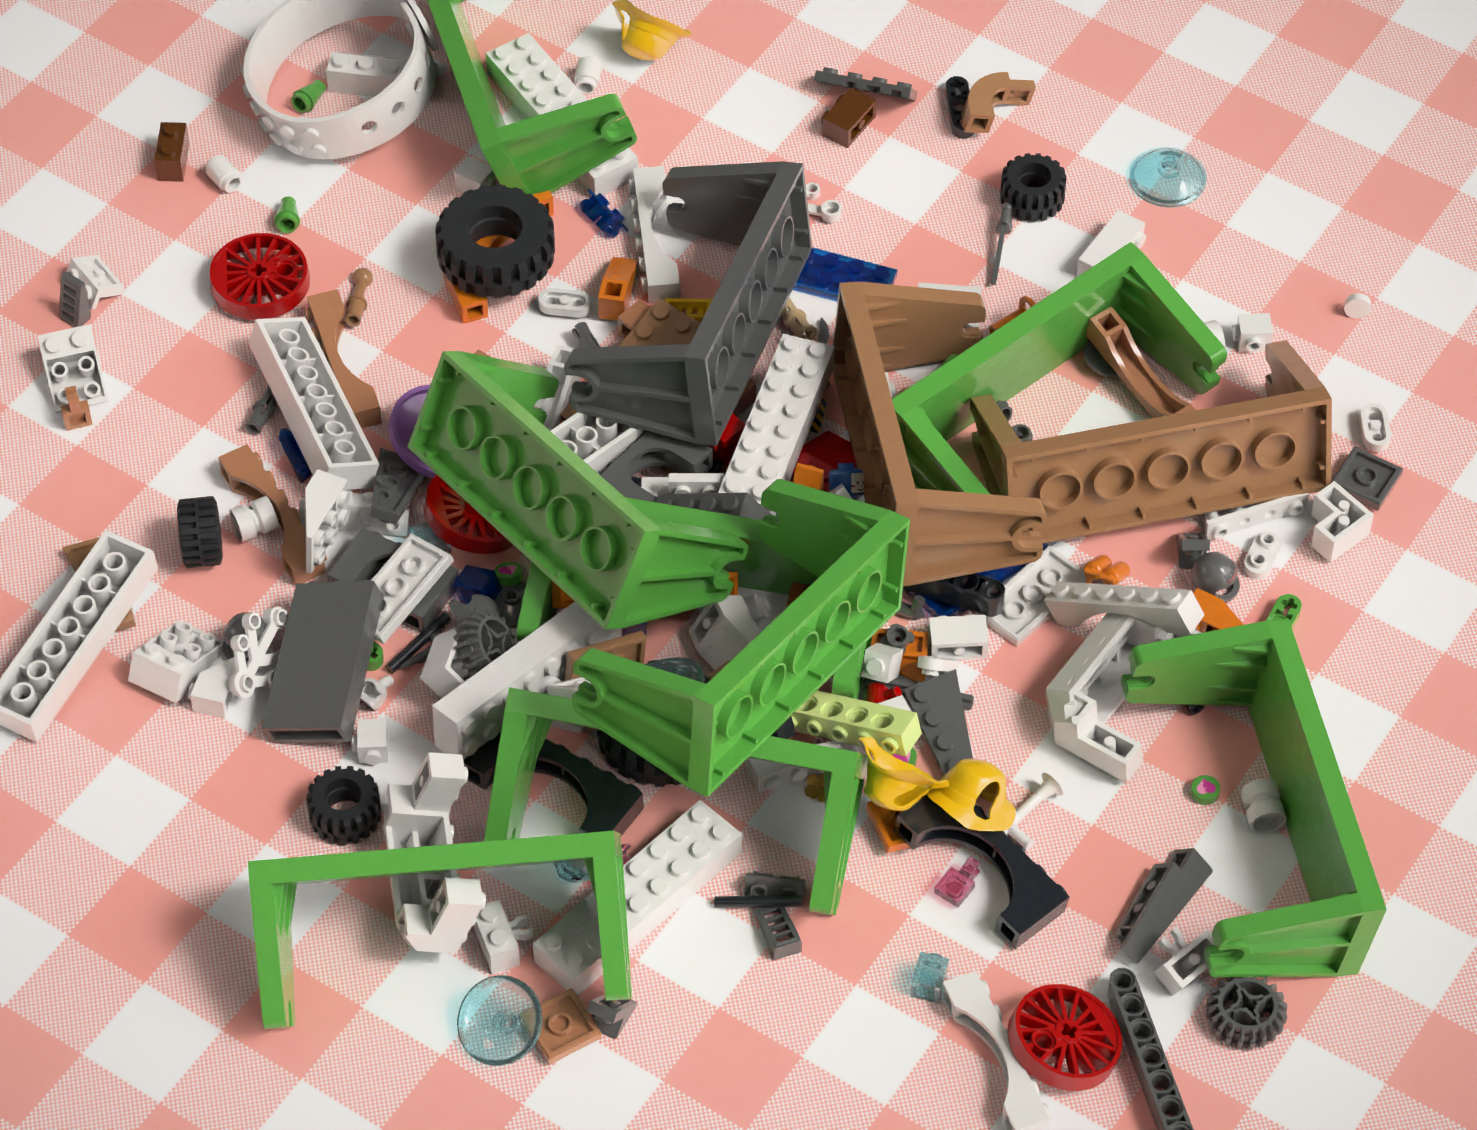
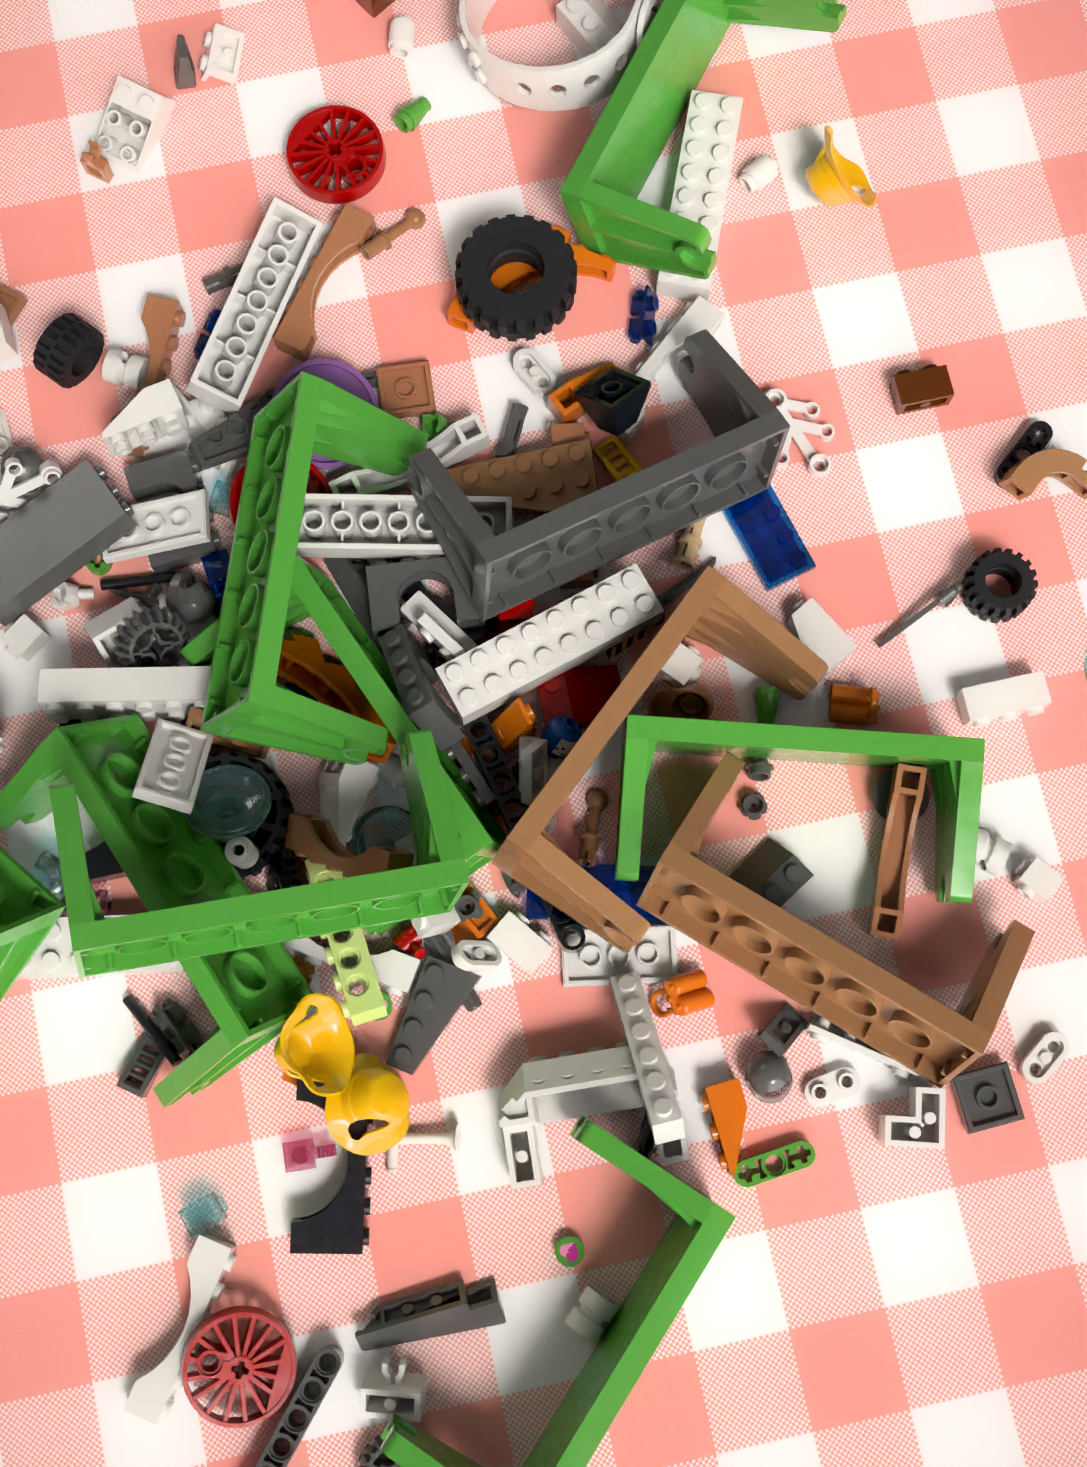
camera: 45 degrees right, 25 degrees up
(307, 96) = (531, 16): bright green cone -> none
(649, 263) = (614, 399): none -> black slope
(876, 85) = (976, 390): dark grey wing -> none

